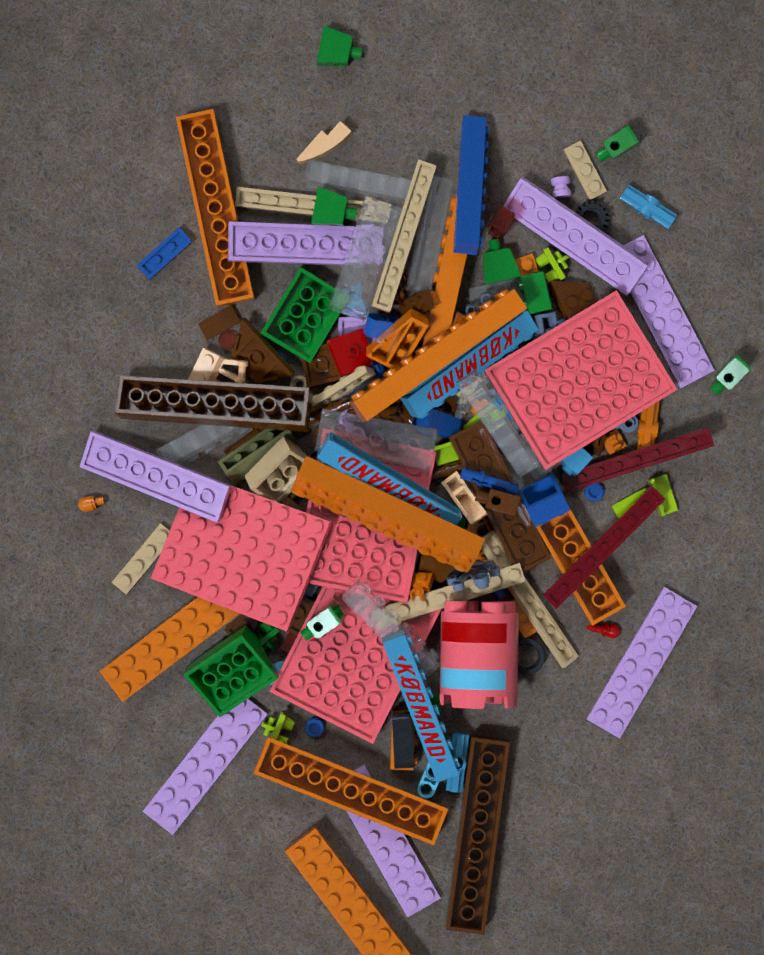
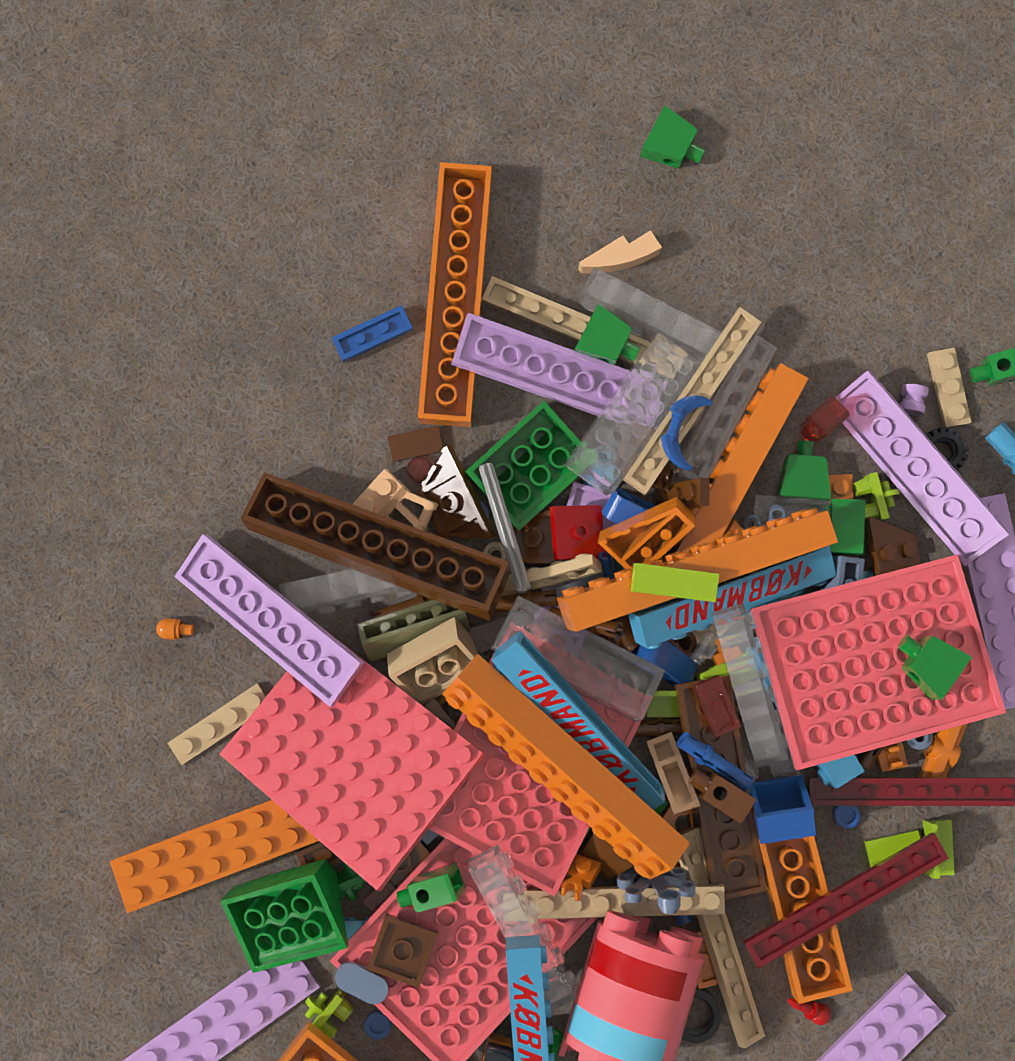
camera: 15 degrees right, 5 degrees down
(295, 698) = (361, 982): none -> sand blue tile
(299, 364) = (504, 527): none -> light grey axle
(315, 668) = (402, 950): none -> reddish brown plate
(395, 269) = (670, 439): none -> blue piece
(423, 369) = (674, 582): none -> lime tile
(469, 187) = (801, 361): blue brick -> none
(479, 443) = (716, 706): none -> clear red plate
(616, 371) = (932, 664): none -> green torso

